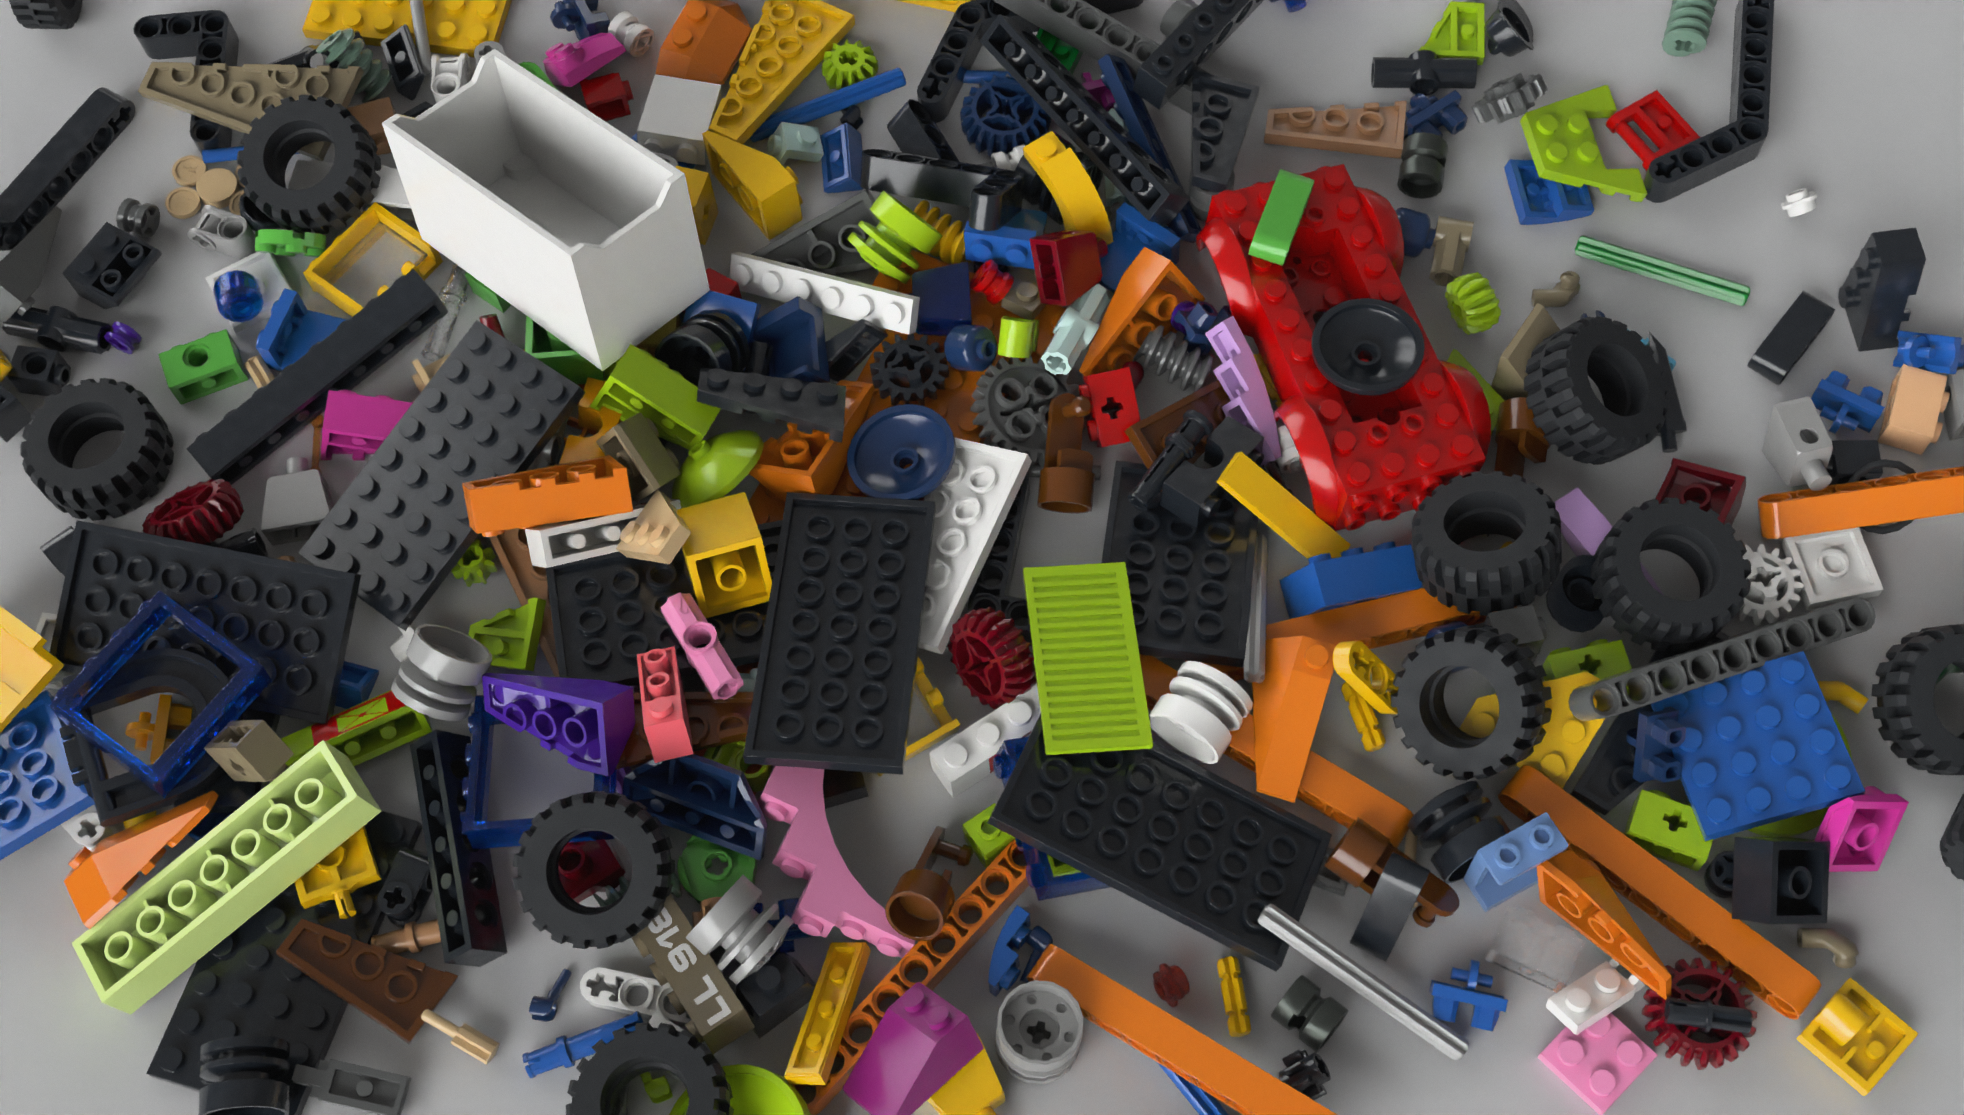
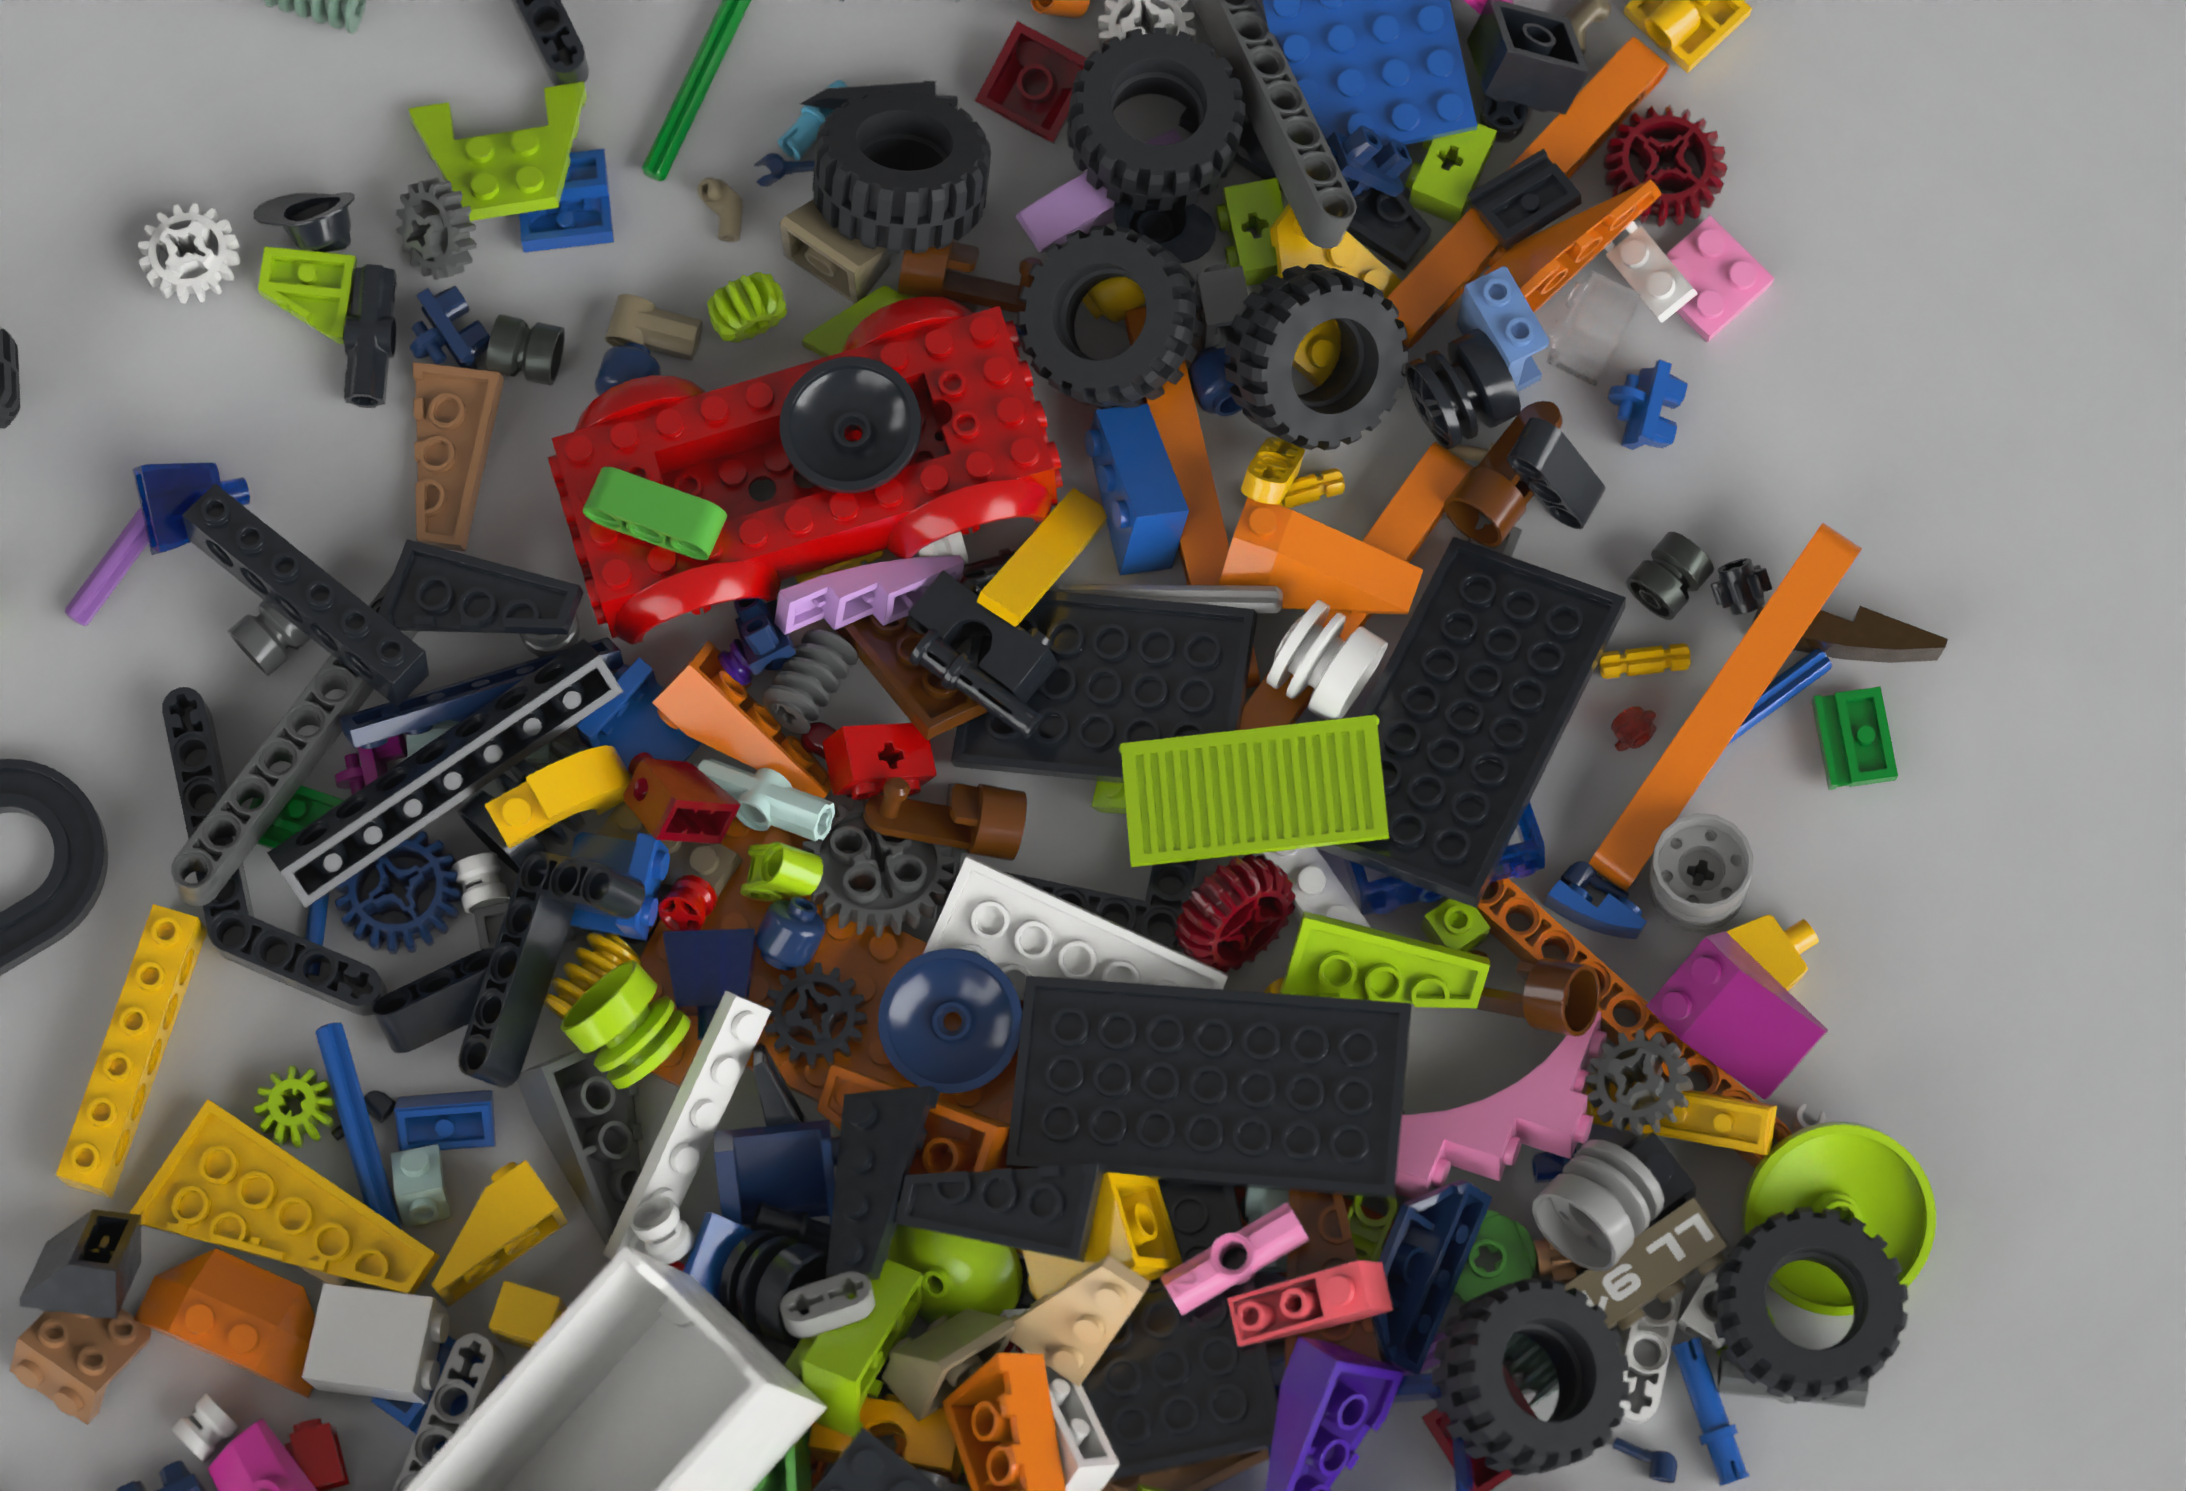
camera: 95 degrees left, 10 degrees up
(680, 363) = (827, 1304): none -> light grey beam
(740, 479) = (1022, 1209): none -> black wing
(746, 275) = (659, 1226): none -> white wheel
(848, 970) = (1633, 1063): none -> dark grey gear
(946, 747) = (1375, 965): none -> lime wing
(1363, 982) = (1636, 514): light grey axle -> none
(1643, 878) = (1524, 199): none -> black plate
(1657, 121) = (480, 50): red plate -> none
(1707, 1015) = (1682, 153): black axle -> none

